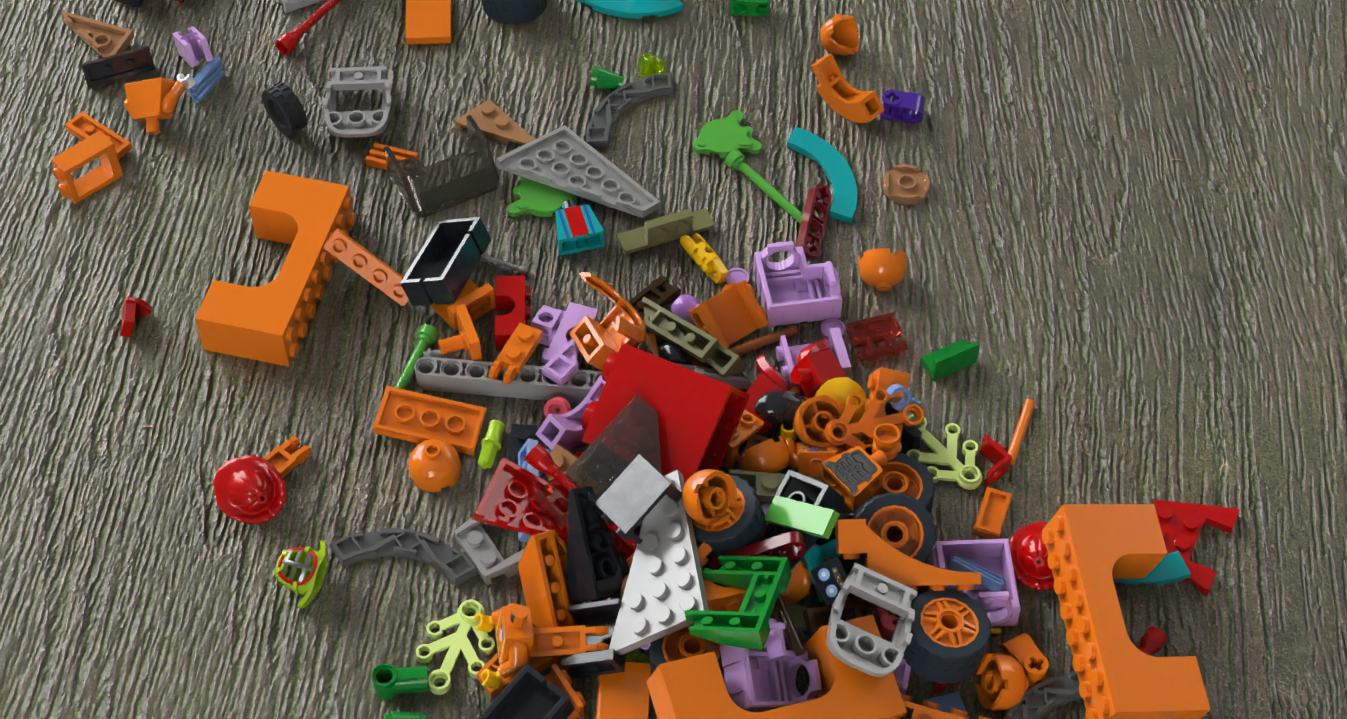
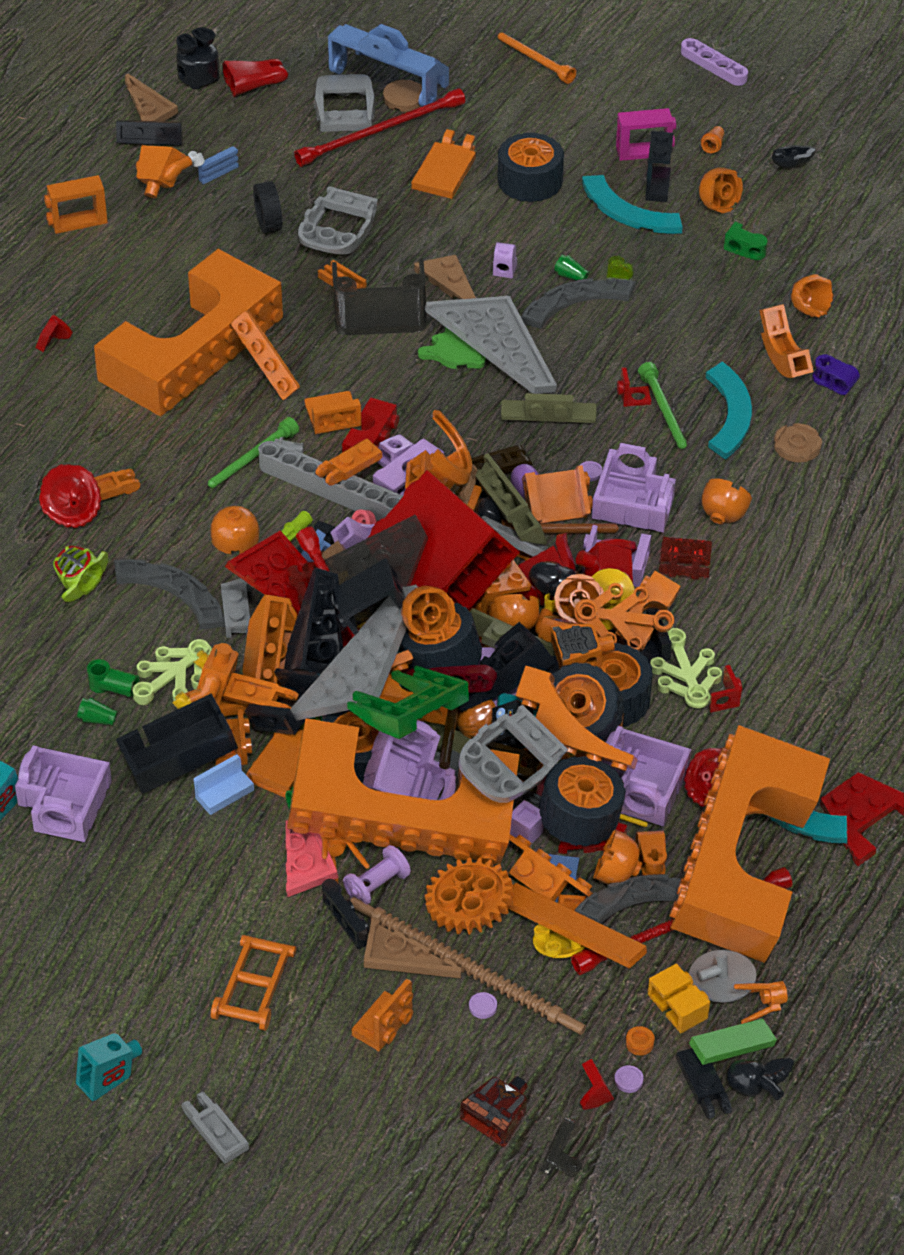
camera: 25 degrees right, 5 degrees down
(84, 126) = (113, 194): orange plate -> none
(192, 46) = (218, 133): lavender piece -> none
(425, 417) = (240, 485): orange tile -> none
(446, 261) = (333, 371): black piece -> none
(465, 340) = (316, 438): orange tile -> none
(522, 269) = (402, 402): light grey hinge -> none
(540, 85) = (505, 255): none -> lavender leg
(562, 365) = (385, 484): lavender tile -> none
(577, 229) = (467, 384): teal torso -> none
(704, 257) = (569, 443): yellow hinge -> none
(725, 184) = (626, 391): none -> red bracket
(726, 135) = (655, 349): bright green tile -> none
(801, 517) = (503, 658): tile -> none
(809, 219) = (687, 445): dark red beam -> none
(831, 323) = (656, 539): lavender piece -> none
(886, 439) = (623, 635): orange wheel -> none
(906, 399) = (666, 606): medium blue piece -> none
(950, 359) = (742, 598): green panel -> none
(988, 578) = (649, 769): medium blue tile -> none
(992, 513) = (701, 732): orange tile -> none
(1021, 429) = (770, 677): orange bar -> none

